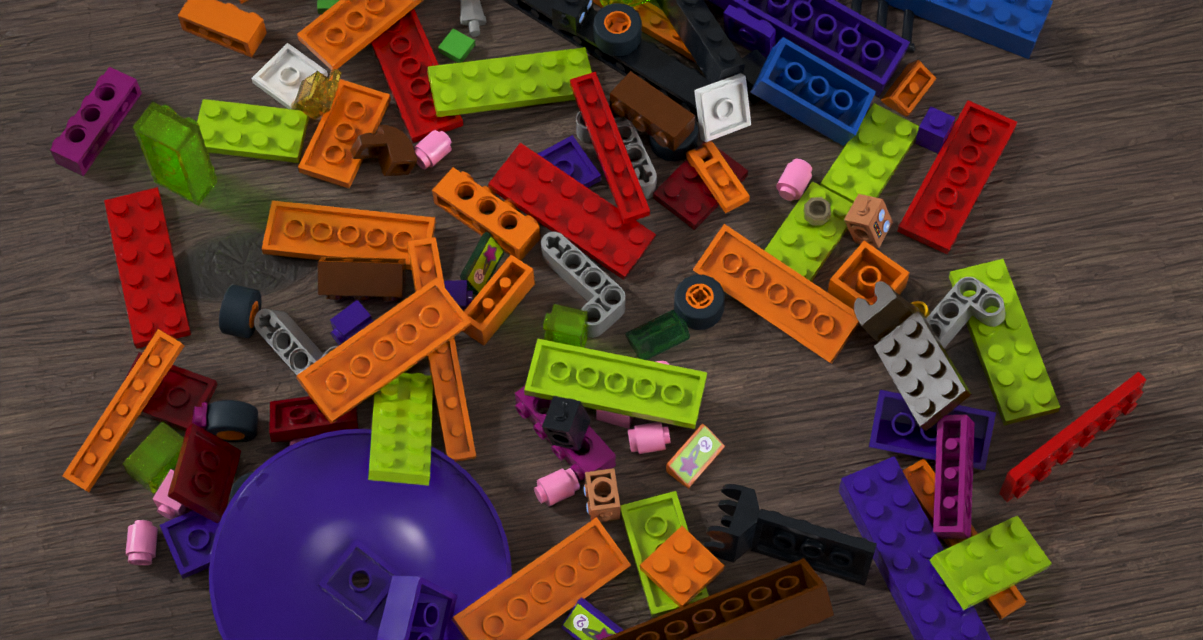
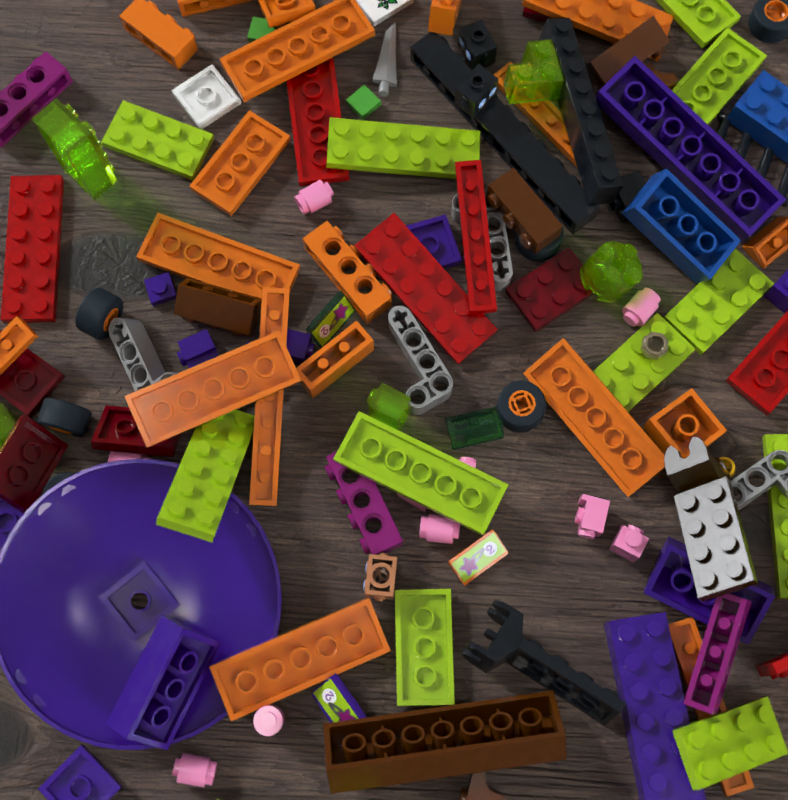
camera: 15 degrees right, 10 degrees up
(199, 415) = (35, 407): magenta plate -> none
(295, 276) = (160, 289): none -> dark purple plate
(317, 93) = (223, 120): clear yellow brick -> none
(390, 147) = (277, 187): reddish brown brick -> none
(556, 486) = (342, 555): bright pink brick -> none
(566, 423) = (363, 502): black head -> none
(617, 29) = (512, 122): black wheel -> none
(682, 567) = (436, 668): orange plate -> none
(718, 176) = (570, 289): orange plate -> none
(722, 107) = (591, 221): white tile -> none
(749, 31) = (636, 152): dark purple plate -> none
(756, 150) = (612, 271): none -> clear neon green brick
(798, 388) = (592, 516): none -> bright pink brick
(845, 400) = (629, 542): none -> bright pink brick
(868, 220) = (700, 366): nougat head -> none

